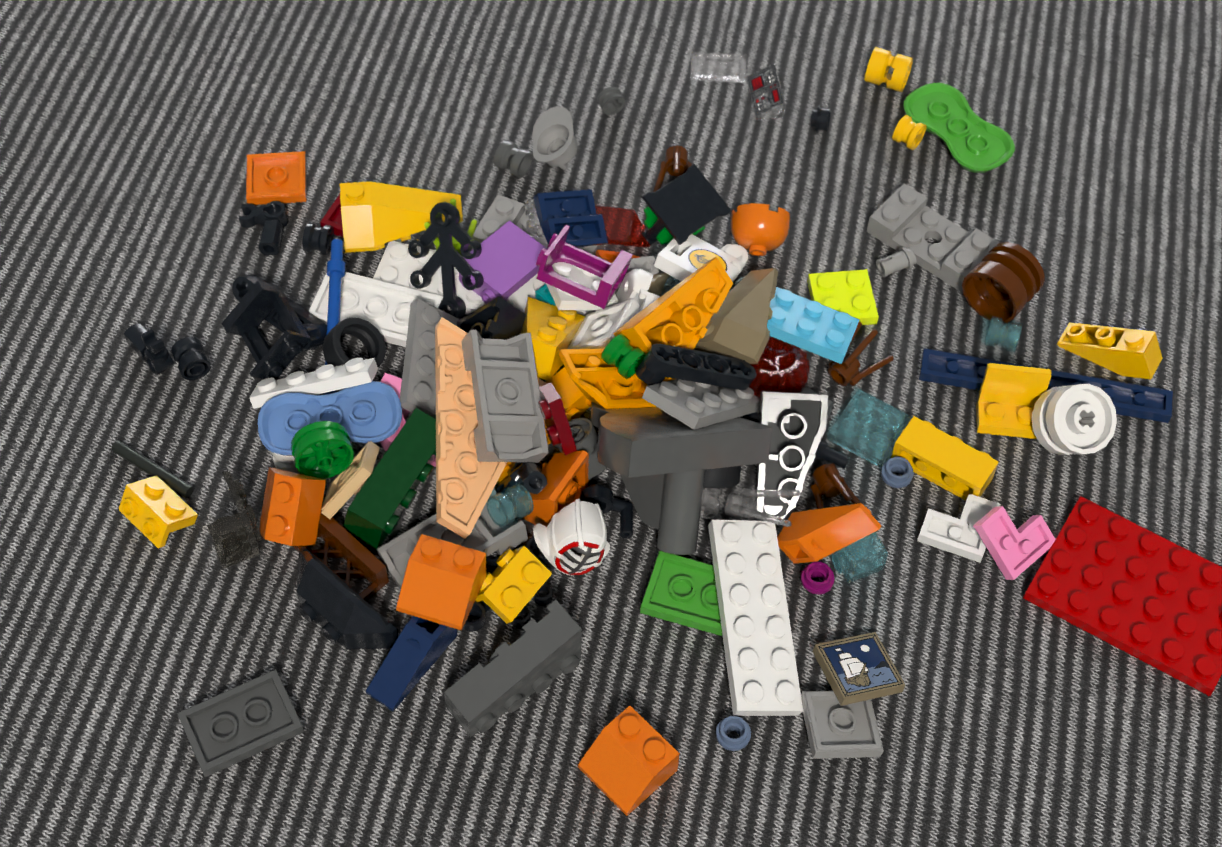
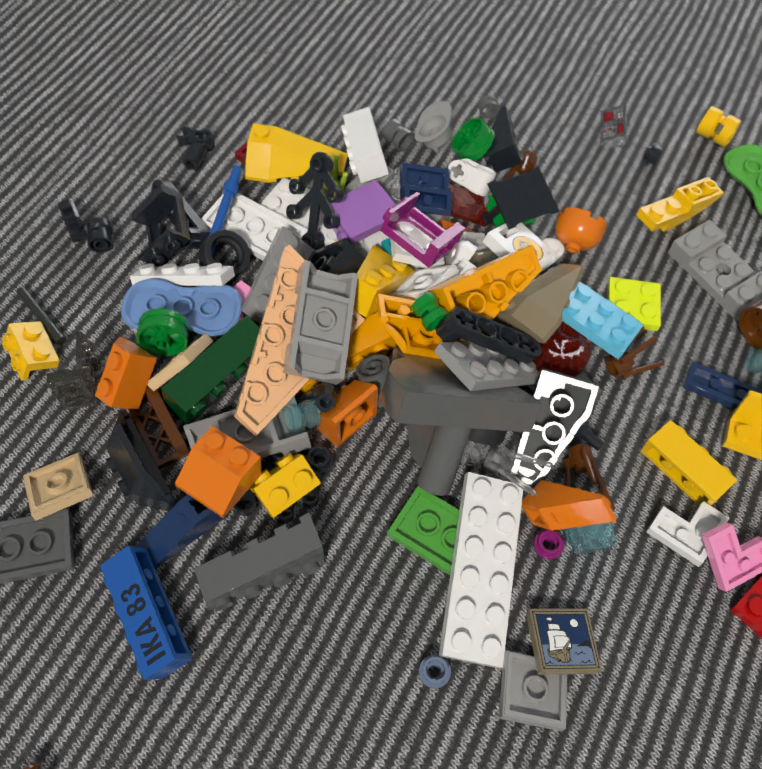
camera: 15 degrees right, 5 degrees up
(253, 649) = (57, 486): none -> tan plate
(276, 177) = (215, 112): orange plate -> none
(317, 238) = (226, 161): black wheel -> none
(404, 751) = (145, 613): none -> blue brick
(479, 180) = (363, 145): none -> white brick
(556, 419) = (355, 343): dark red wing -> none
(575, 527) = (352, 452): white piece -> none
(604, 497) = (382, 428): black plate -> none
(606, 147) = (472, 139): none -> green wheel
(621, 191) = (474, 176): none -> white piece
(629, 760) = (334, 674): orange slope -> none
(641, 144) = (504, 148): none -> black slope
(718, 67) = (580, 98): clear slope -> none
(868, 174) = (683, 205): none -> yellow slope
(869, 428) = (629, 420): clear light blue plate -> none
(898, 465) = (646, 459): sand blue plate -> none
(902, 259) = (685, 283): light grey pin -> none
(909, 132) = (724, 178): yellow wheel -> none

